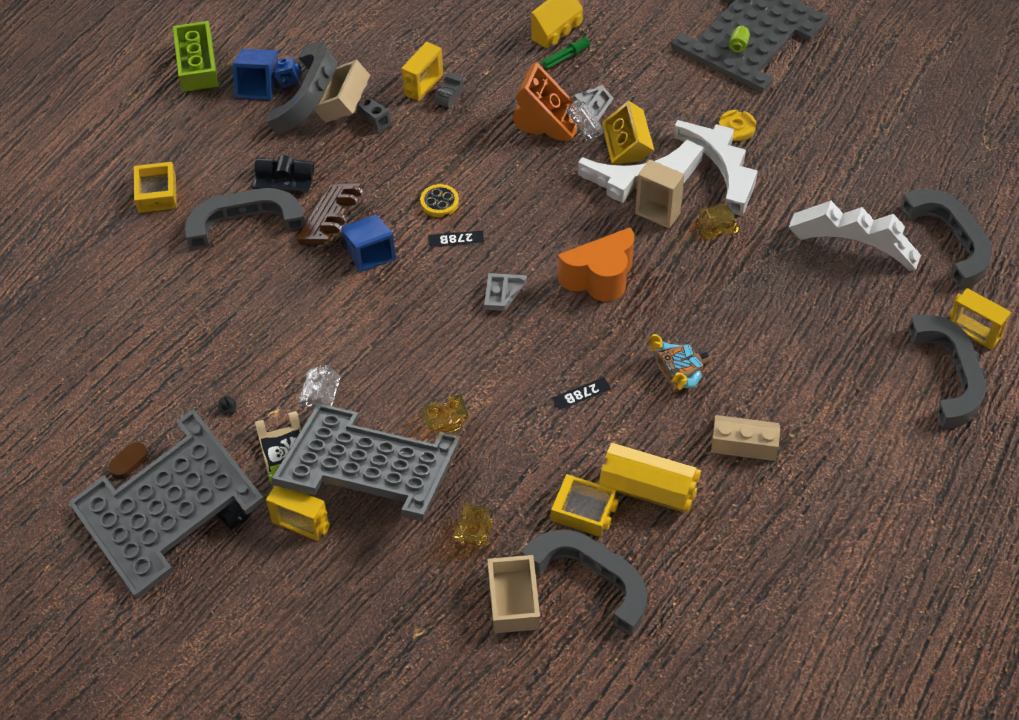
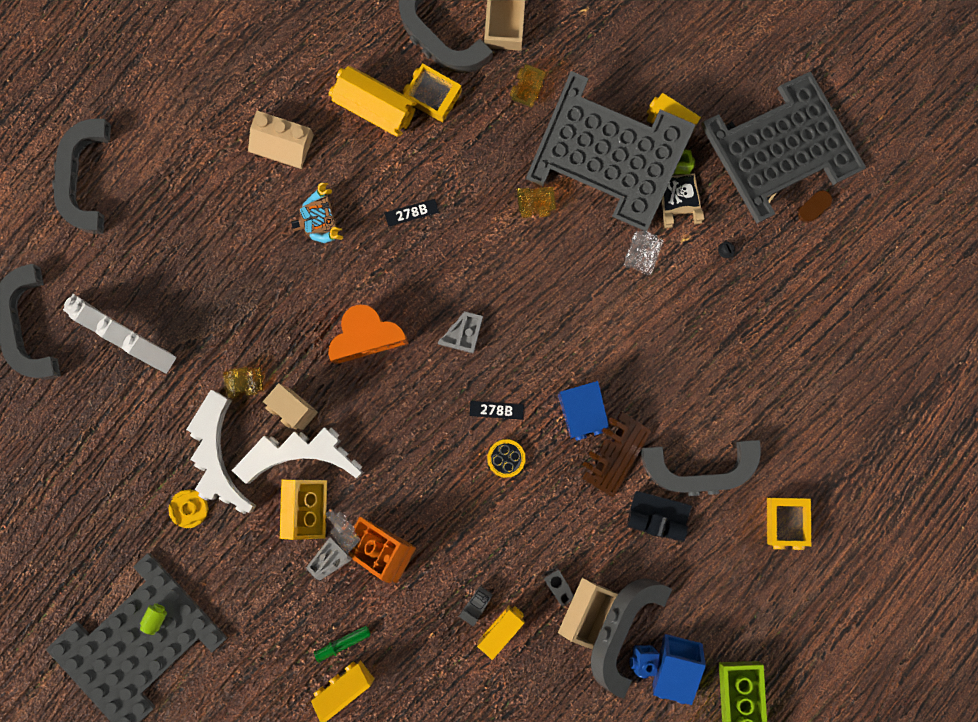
camera: 170 degrees left, 30 degrees up
(979, 318) = (37, 216): yellow window -> none

